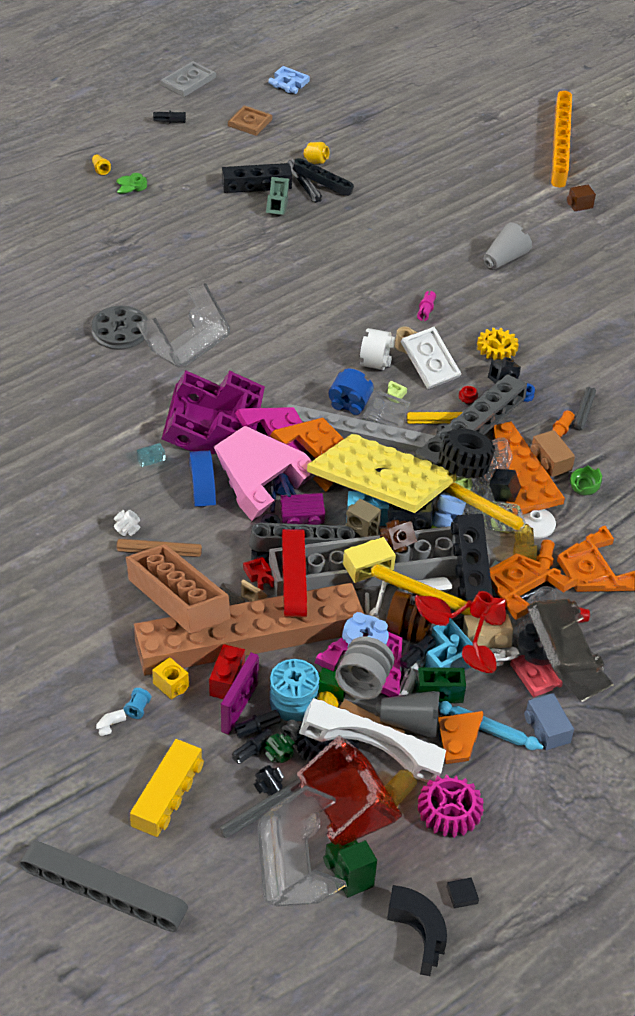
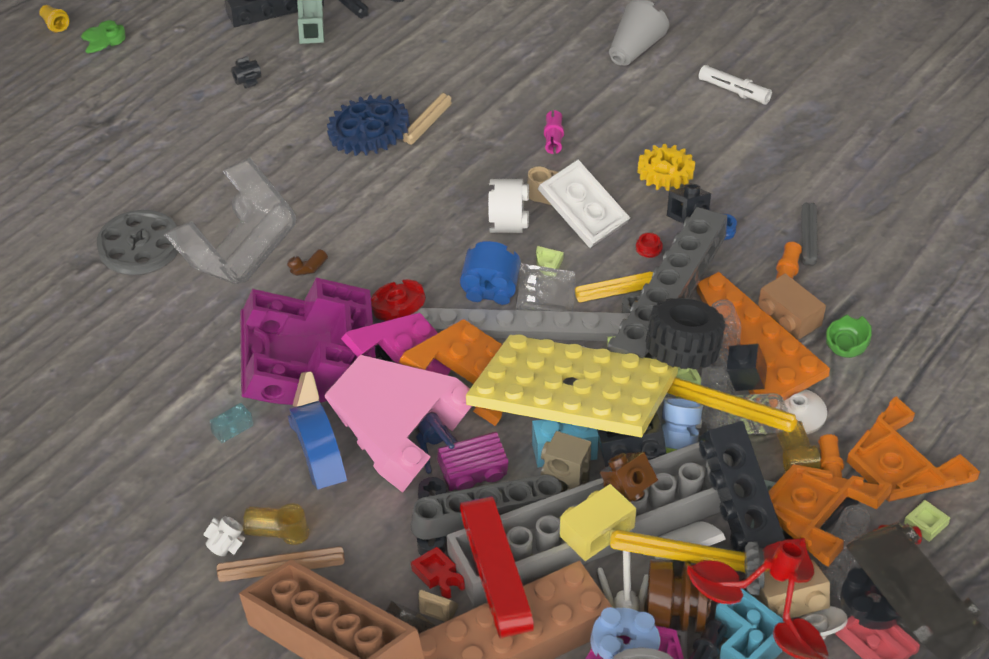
camera: 10 degrees left, 0 degrees up
(168, 522) = (285, 523): none -> clear yellow piece
(204, 442) = (306, 390): none -> tan slope
(223, 225) = (246, 72): none -> black gear
(232, 364) = (310, 266): none -> reddish brown arm
(283, 397) = (398, 300): none -> red tile
(297, 277) = (368, 125): none -> dark blue gear
(340, 280) = (427, 118): none -> tan axle
(463, 617) = (753, 560): none -> dark grey gear
(573, 300) = (759, 93): none -> white pin
(598, 608) = (928, 519): none -> yellowish green tile

